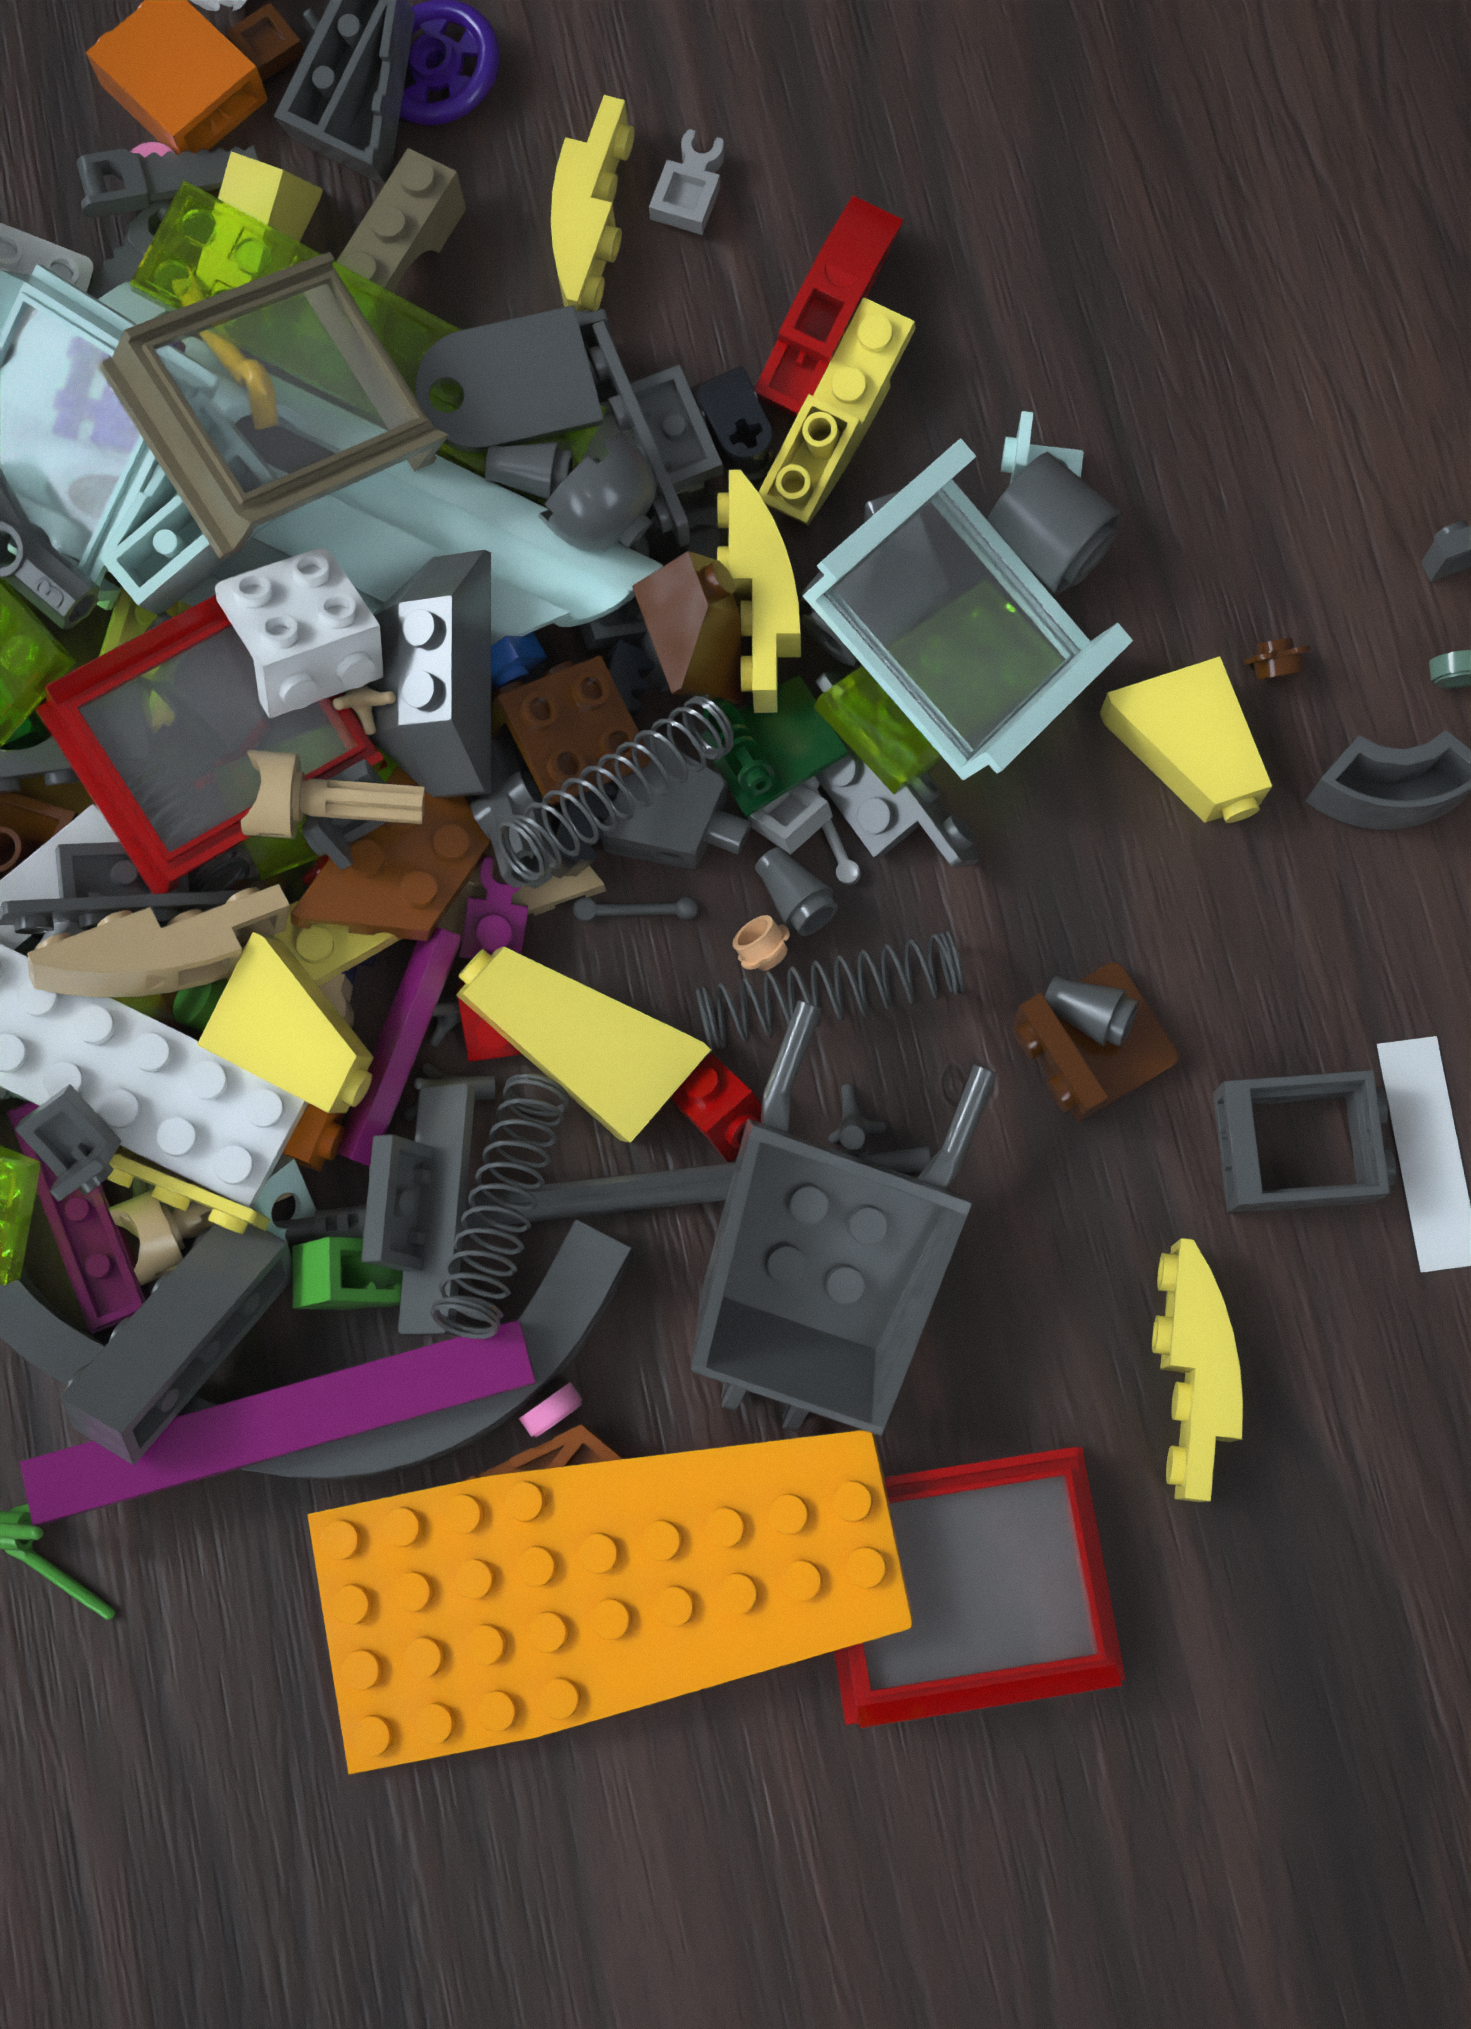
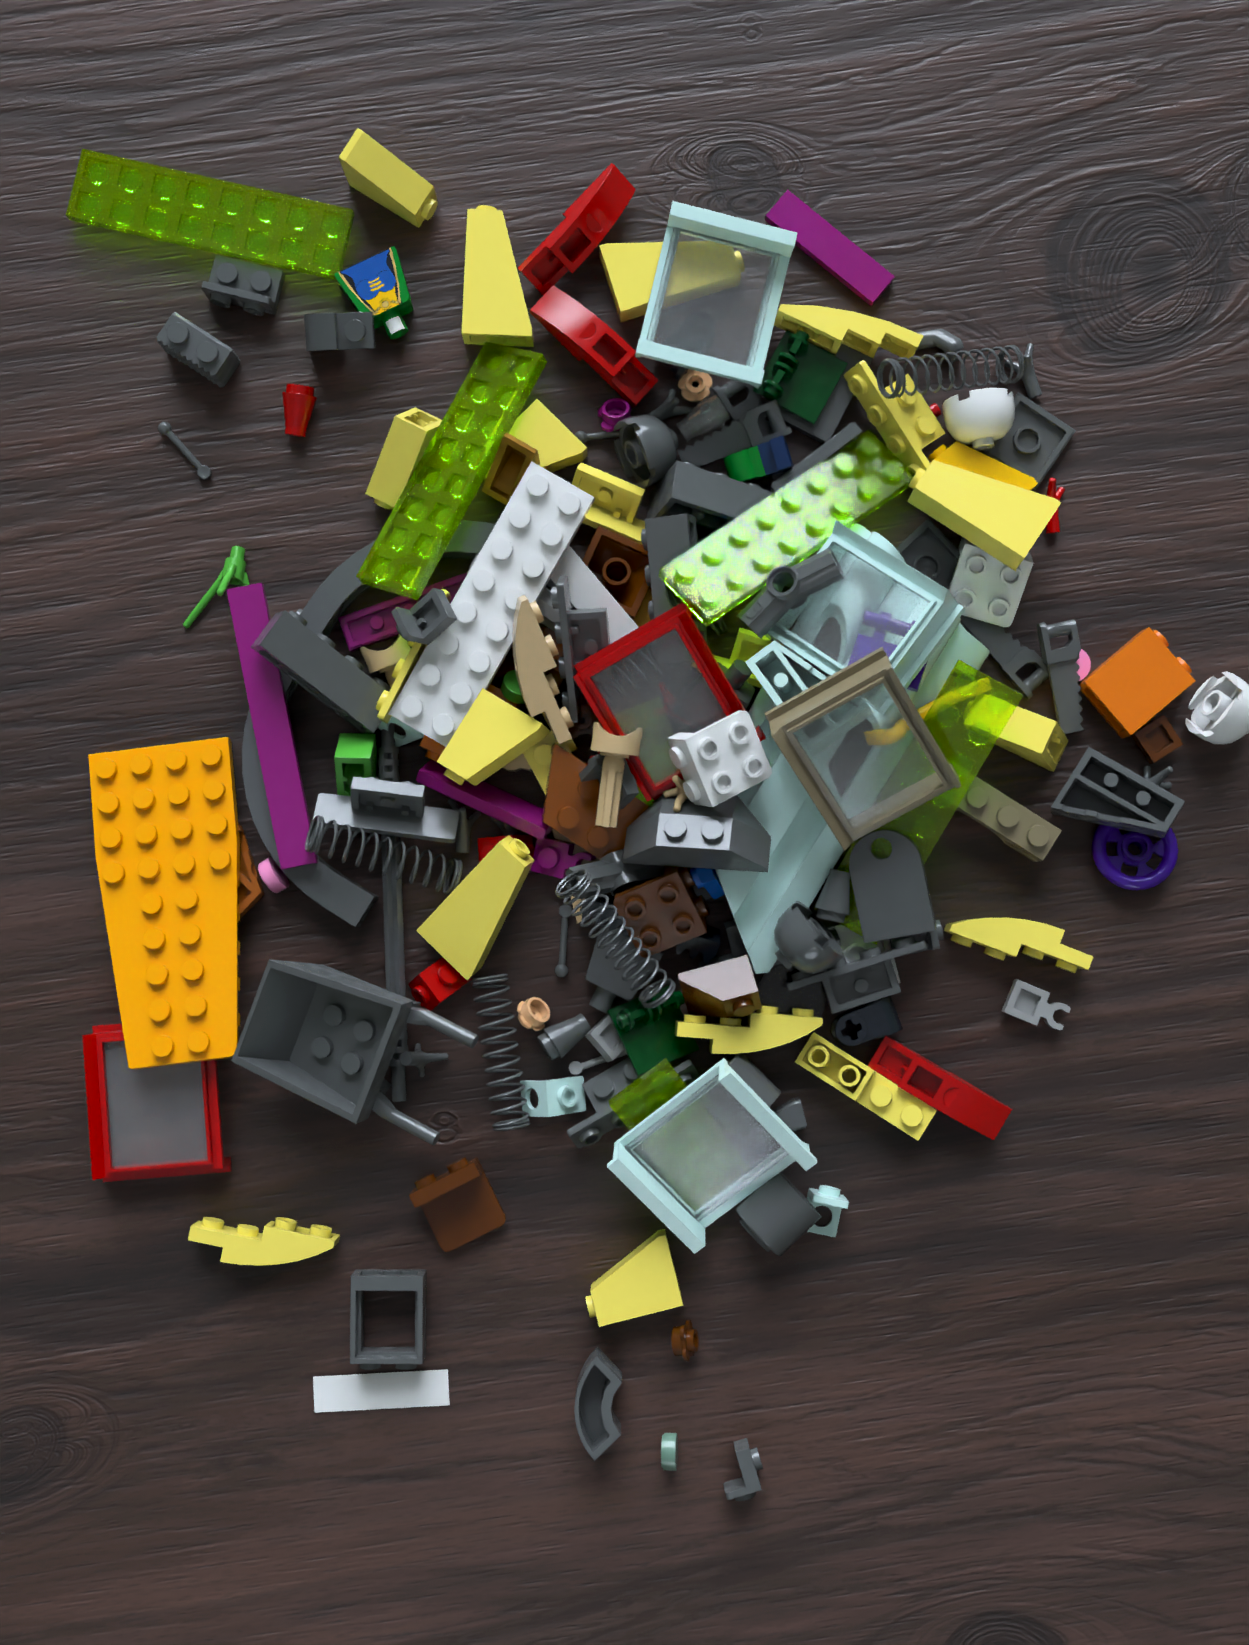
camera: 90 degrees right, 10 degrees up
(897, 892) = (555, 1096): none -> light aqua bracket
(1093, 1009) = (473, 1205): dark grey cone -> none

